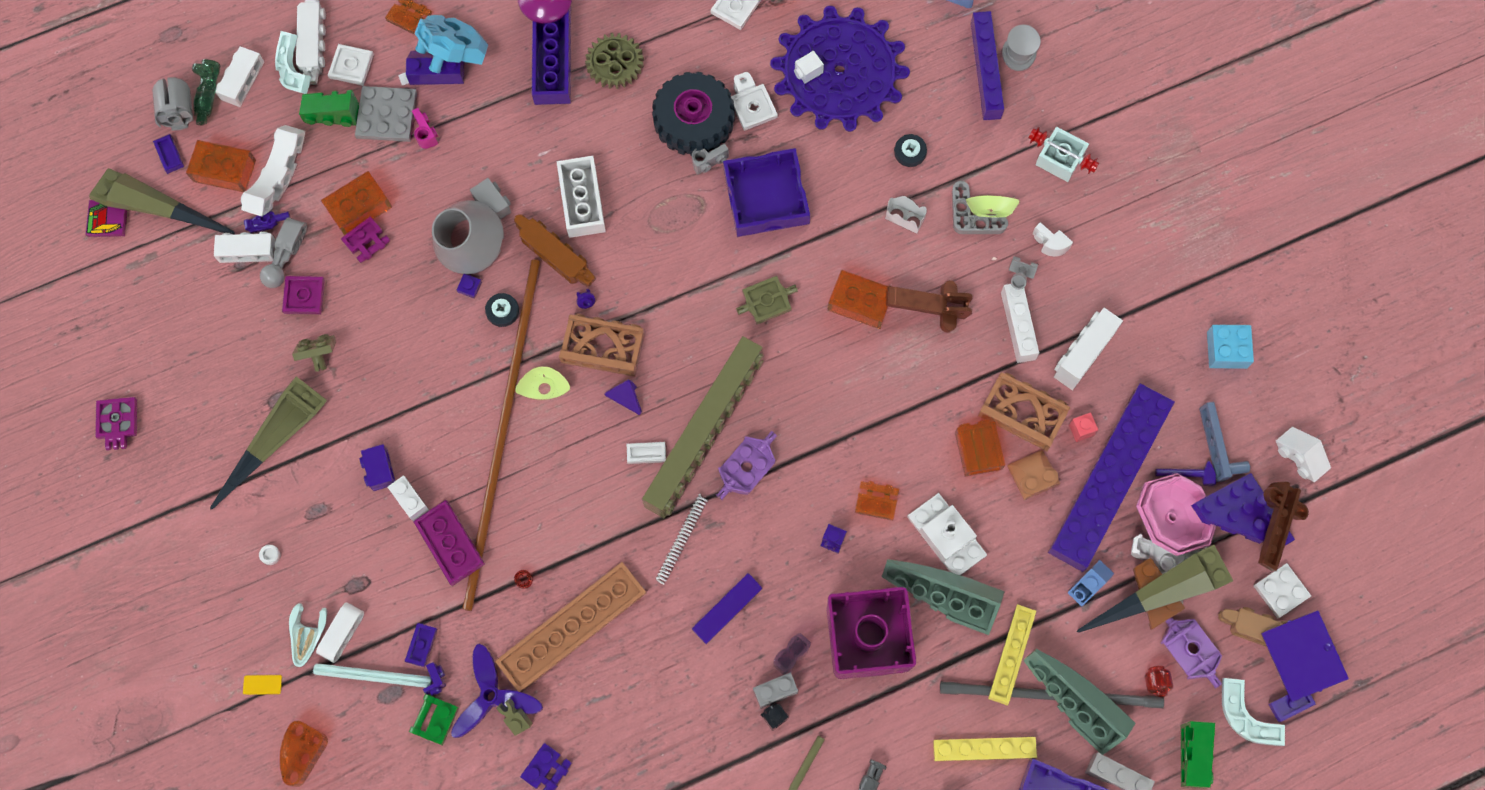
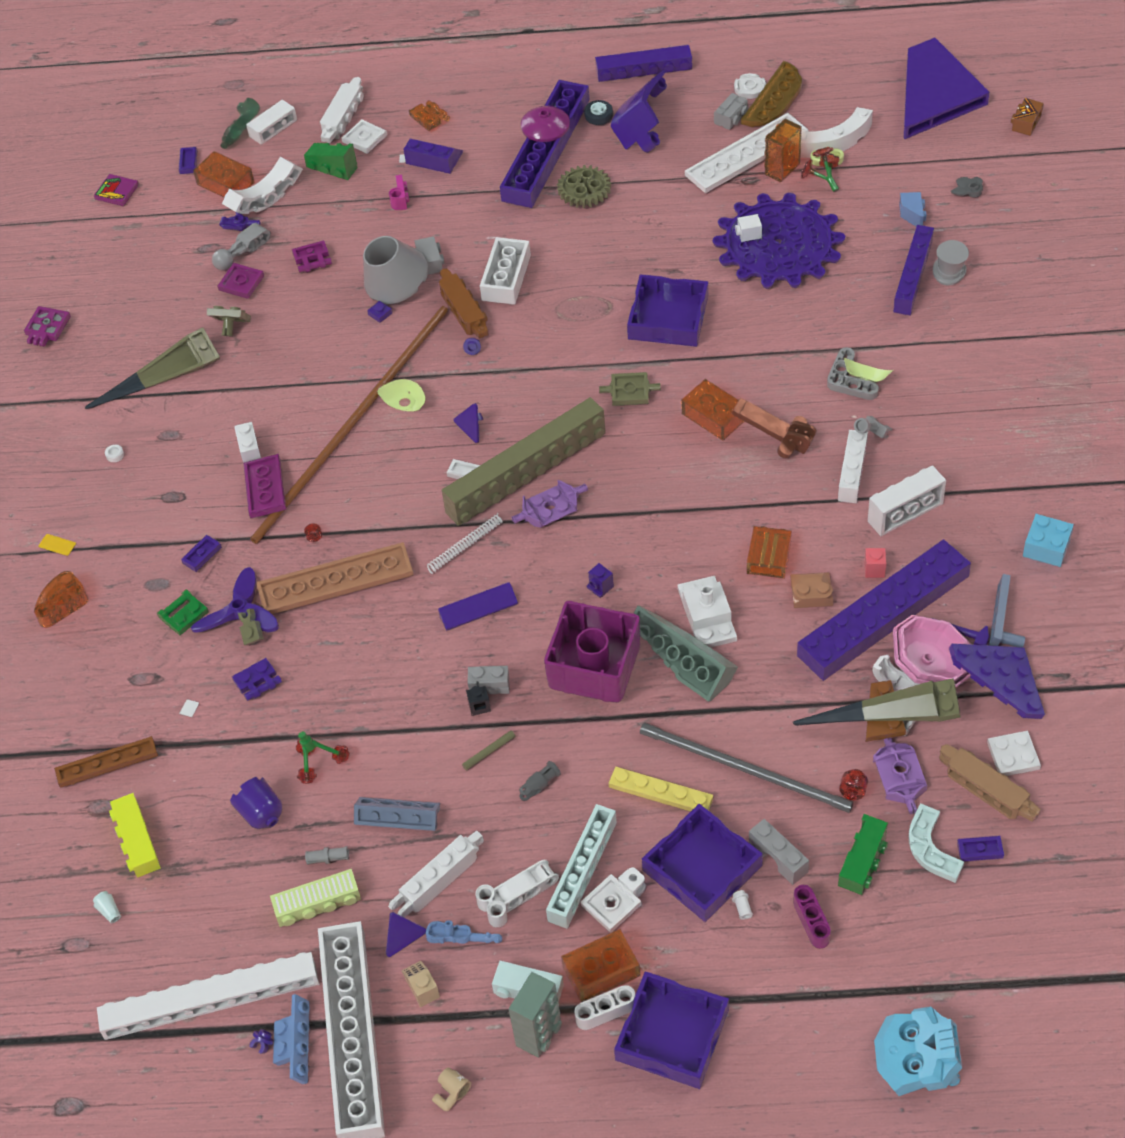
camera: 25 degrees right, 20 degrees down
(128, 193) = (146, 178): olive plate -> none
(172, 103) = (208, 125): light grey cylinder -> none
(244, 247) = (210, 235): white brick -> none
(284, 64) = (313, 132): light aqua plate -> none
(302, 637) = (107, 519): light aqua animal -> none
(340, 632) = (140, 523): white beam -> none
(356, 202) = (318, 226): clear orange brick -> none
(372, 675) = (150, 564): light aqua axle -> none
(377, 467) = (234, 412): dark purple brick -> none
(386, 113) = (374, 177): light grey plate -> none
(436, 674) = (199, 584): dark purple bracket -> none
(449, 41) = (453, 132): medium azure brick -> none
(502, 316) = (397, 334): black wheel -> none
(619, 364) = (468, 366): nougat fence -> none
(693, 113) = (632, 237): black wheel -> none
(710, 159) = (627, 275): light grey plate -> none
(749, 94) = (688, 238): white plate -> none
(788, 657) = (517, 654): clear purple brick -> none
(874, 505) = (651, 568): clear orange plate -> none
(906, 205) = (789, 351): white piece -> none
(909, 157) = (813, 314): black wheel -> none
(1012, 655) = (721, 719): light yellow plate -> none
(1033, 436) = (830, 520): nougat fence -> none
(1054, 244) = (913, 417): white brick -> none
(1062, 153) = (951, 348): light aqua brick -> none
(1086, 706) = (772, 780): sand green wedge -> none
(1090, 583) = (825, 687): medium blue slope -> none
(1285, 507) = (1032, 687): copper piece -> none
(1304, 656) = (1008, 805): dark purple piece -> none
(1305, 452) = (1085, 644): white brick -> none

